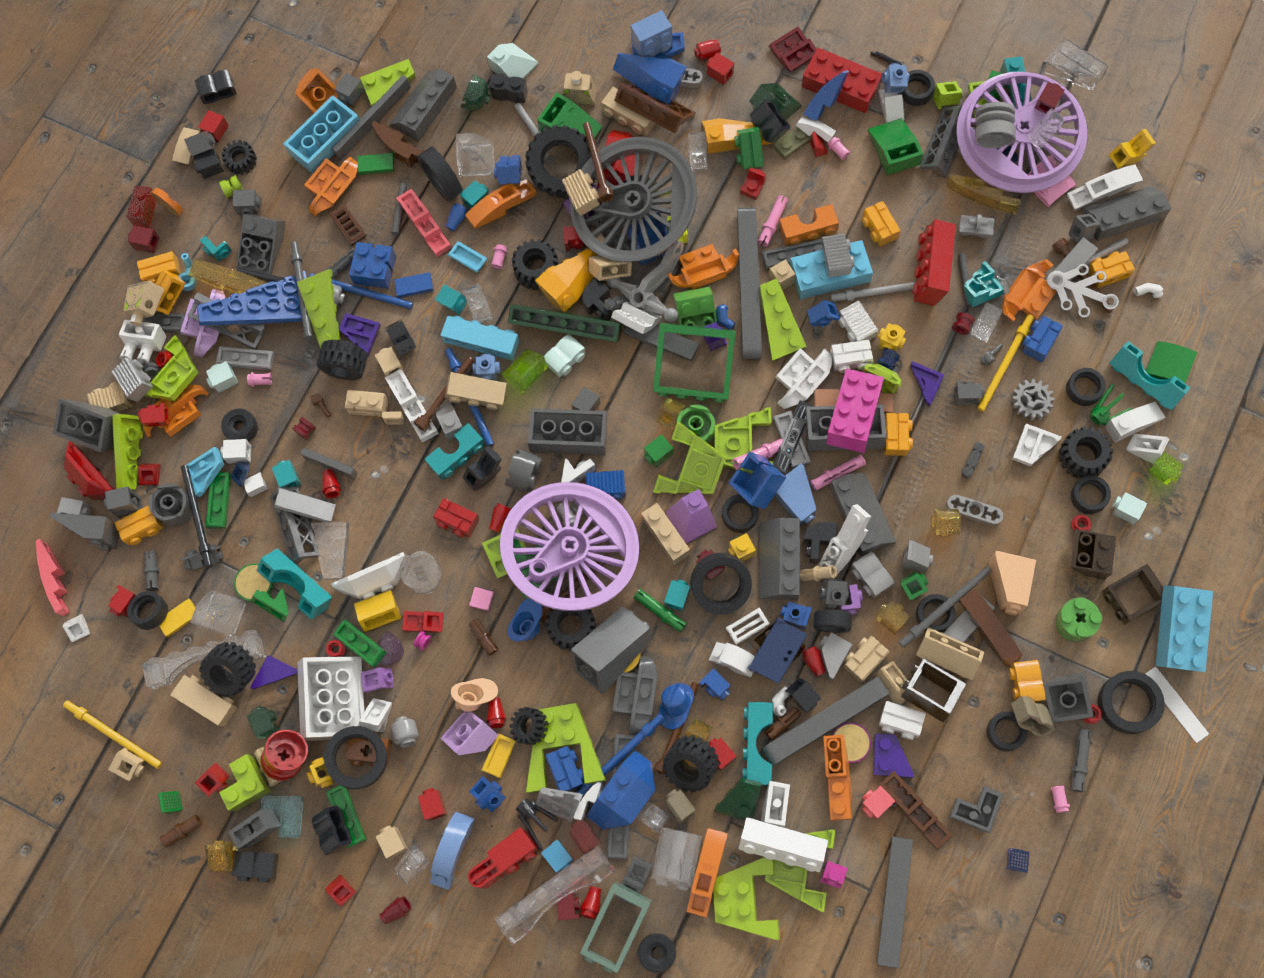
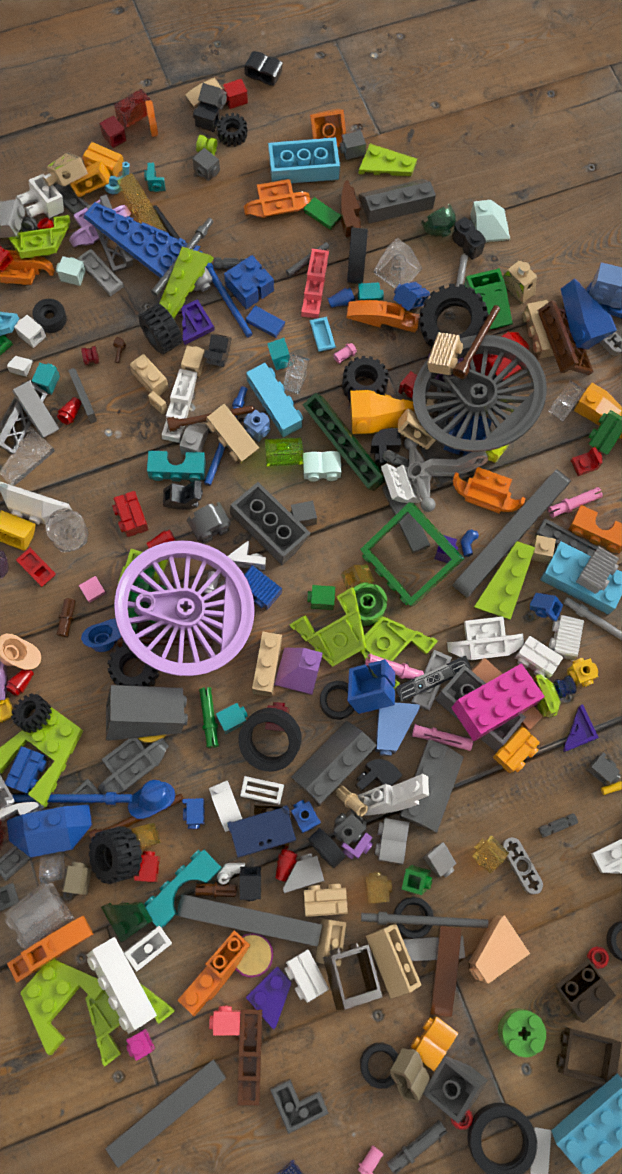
camera: 30 degrees right, 0 degrees up
(240, 472) = (18, 348): dark blue slope -> none
(259, 243) = (188, 200): dark grey slope -> none
(259, 379) = (94, 294): bright pink pin -> none
(341, 215) = (260, 228): reddish brown slope -> none
(375, 113) = (355, 178): dark grey tile -> none
(422, 641) = (21, 580): dark pink bush -> none
(695, 307) = (452, 516): bright green slope -> none
(742, 548) = (312, 727): yellow brick -> none

